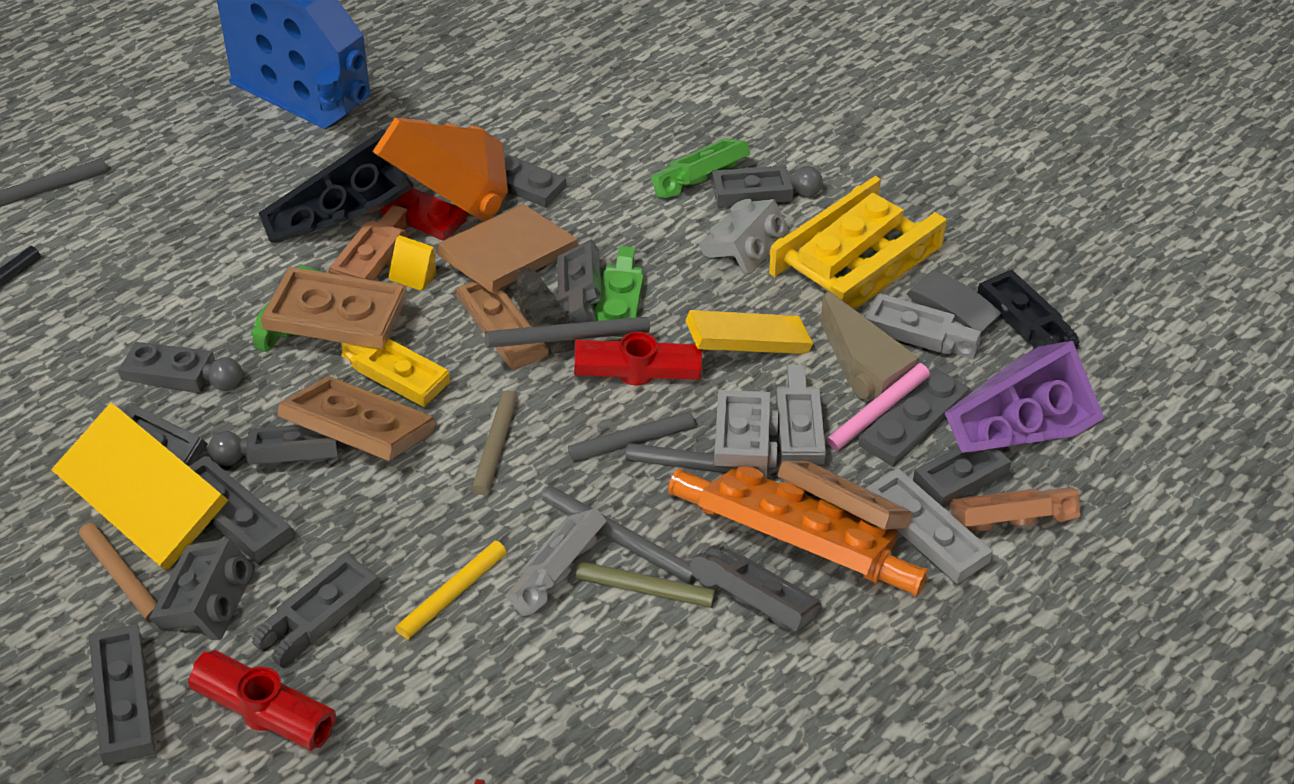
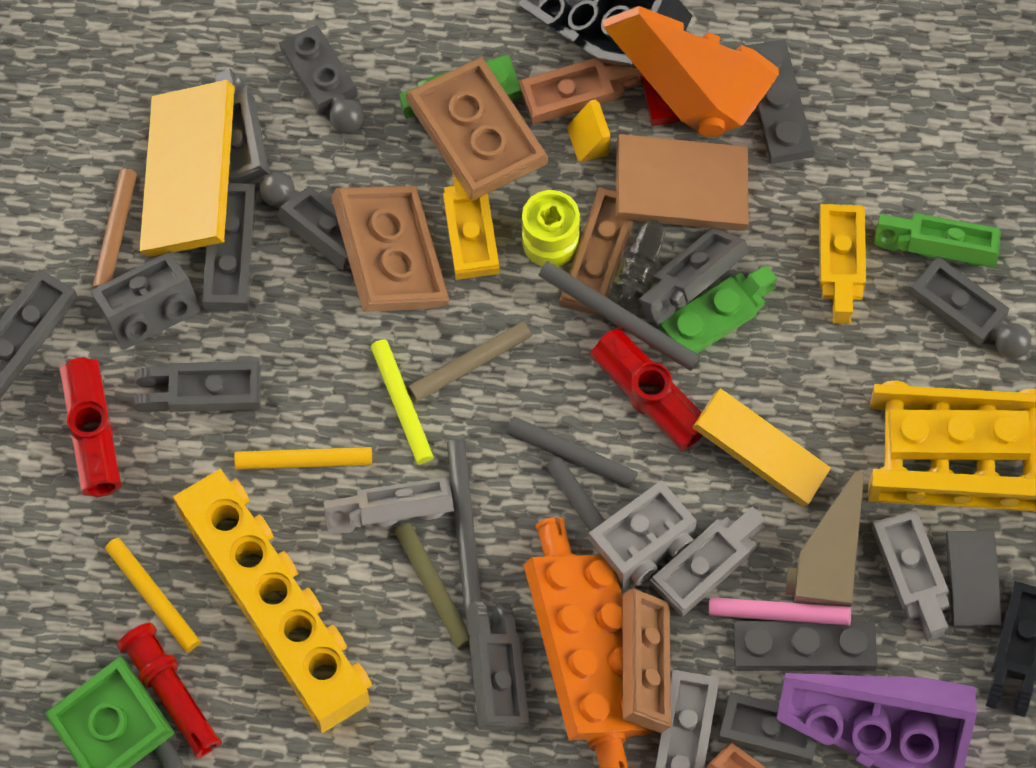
camera: 50 degrees right, 20 degrees up
(426, 681) = (325, 700): none -> yellow brick
(448, 769) = (152, 595): none -> yellow bar
(458, 323) = (550, 228): none -> neon yellow wheel
(478, 501) = (402, 402): none -> neon yellow bar
(657, 214) = (842, 257): none -> yellow hinge
(746, 233) = (891, 347): light grey bracket -> none

